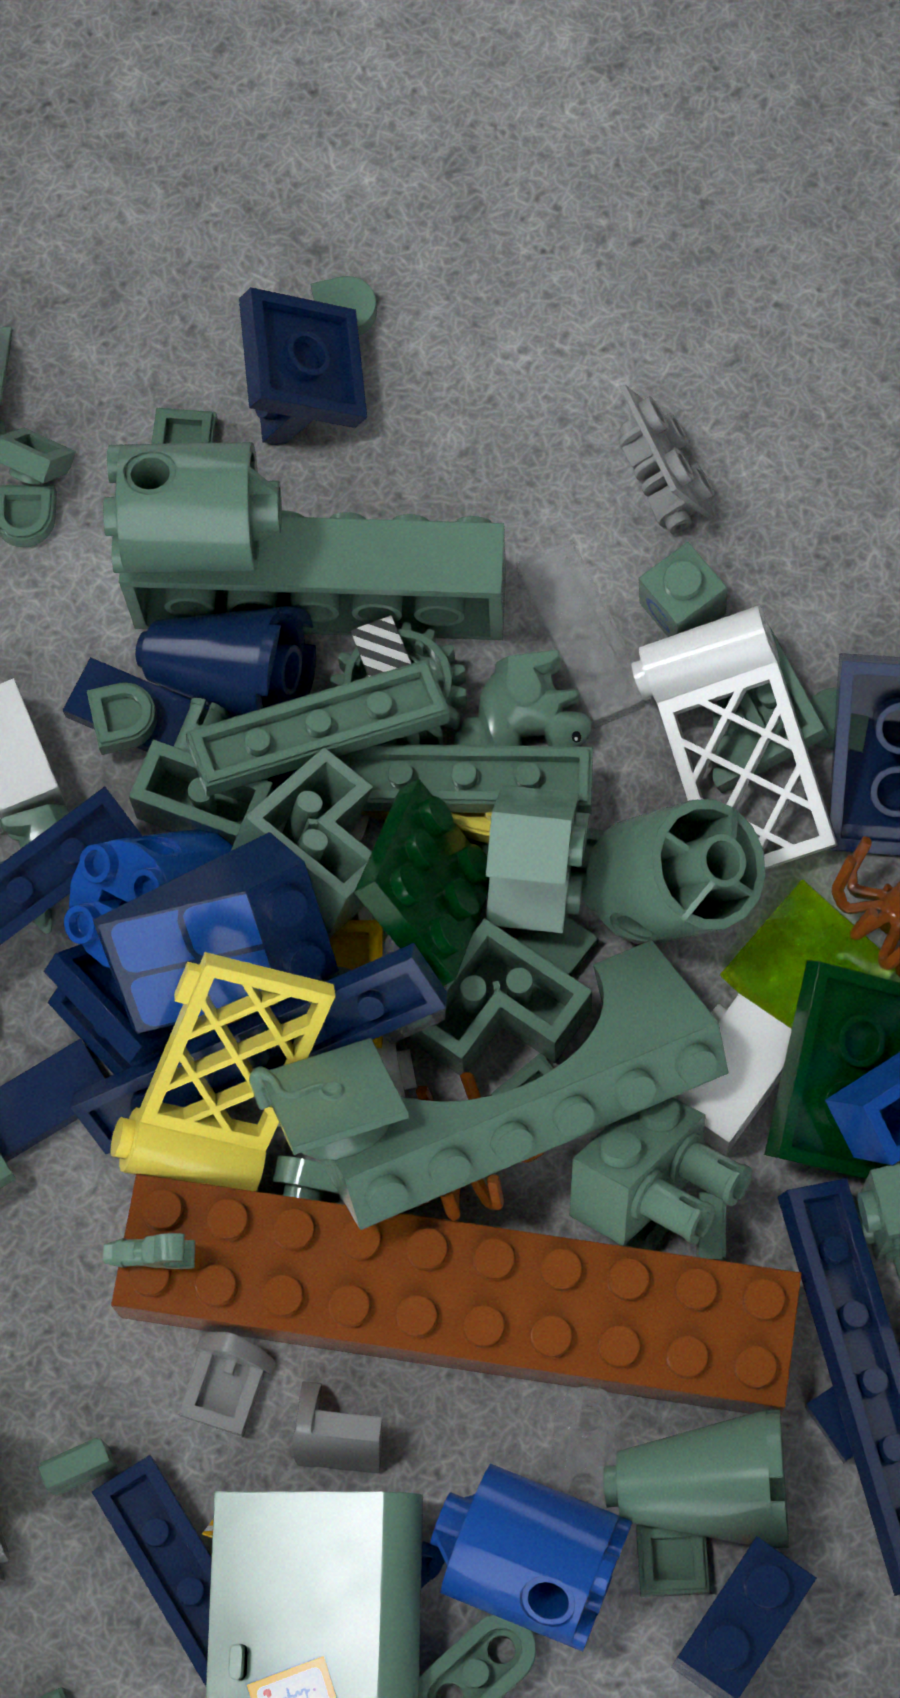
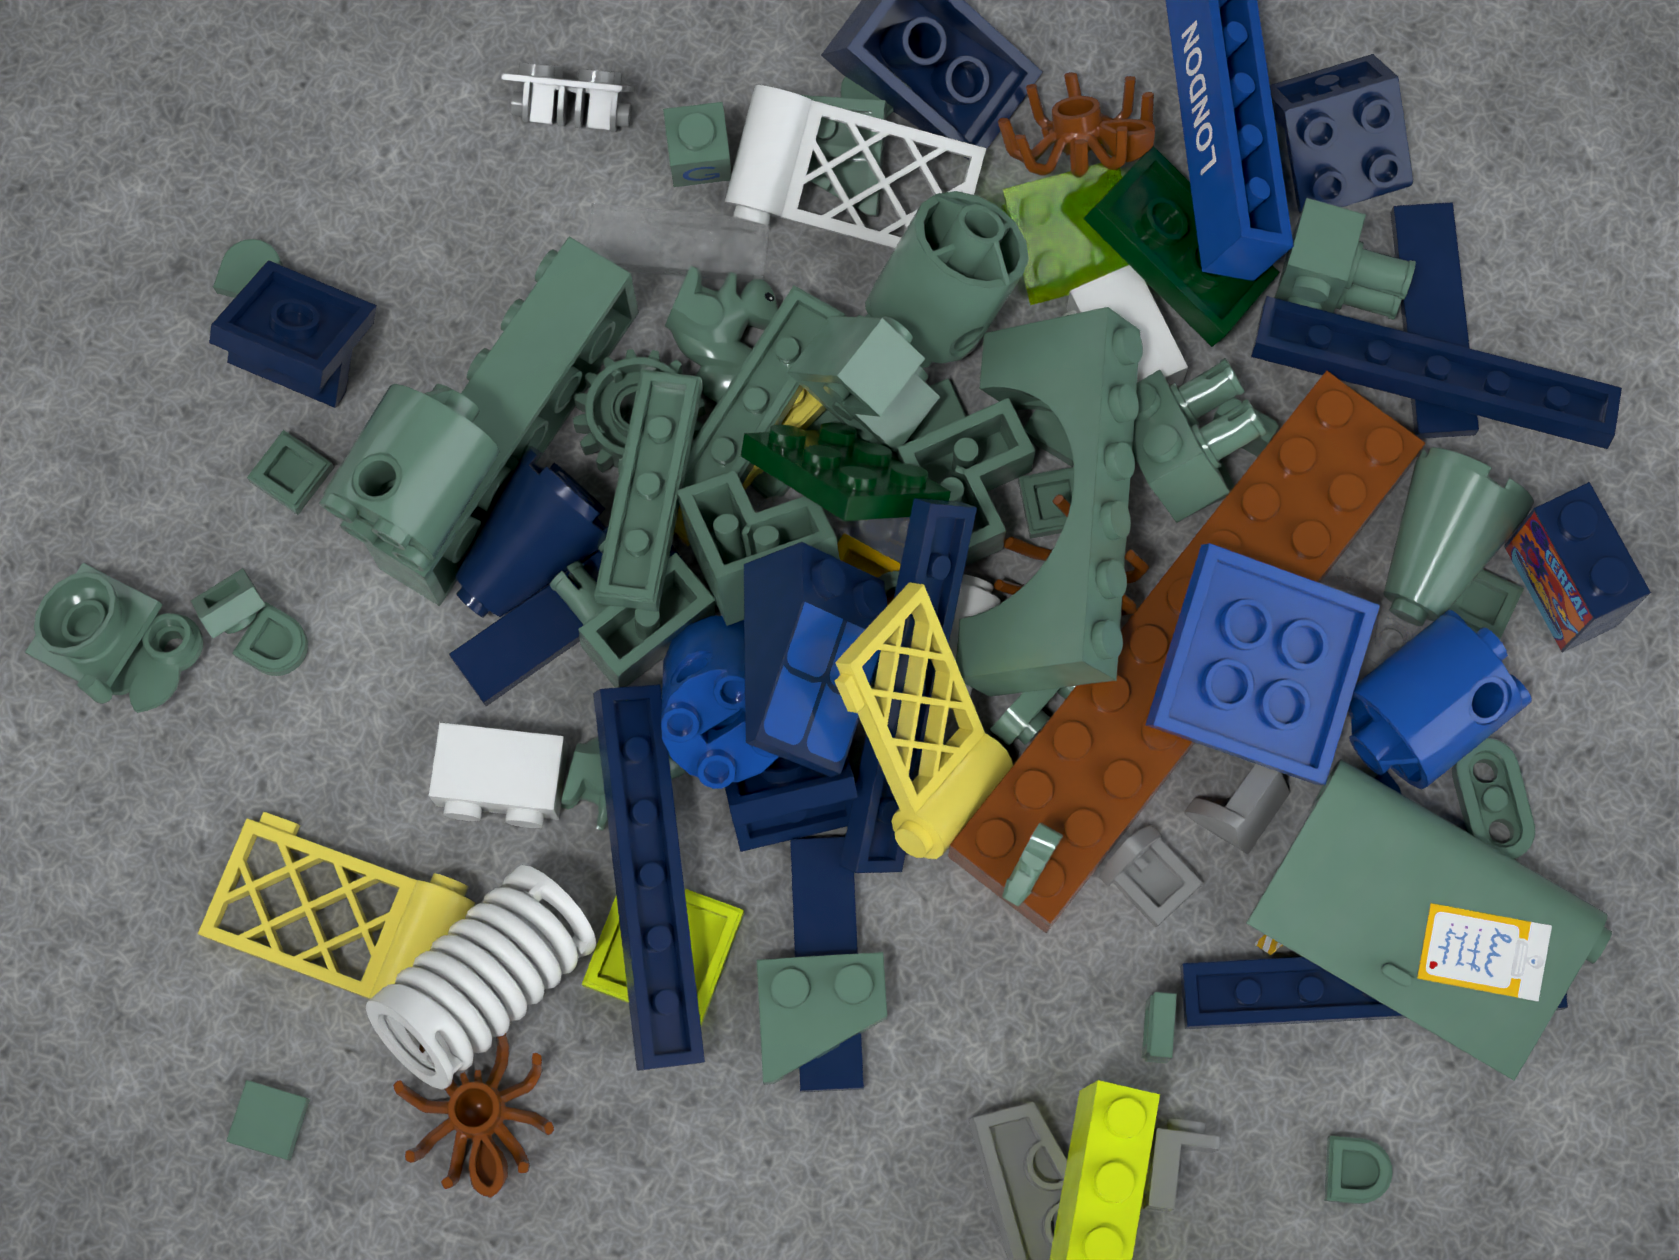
camera: 65 degrees left, 5 degrees up
(122, 716) = (523, 654): sand green tile -> none
(331, 1101) = (1001, 639): sand green hat -> none
(380, 646) = (603, 404): sticker -> none
(460, 1364) = (1262, 664): none -> blue plate

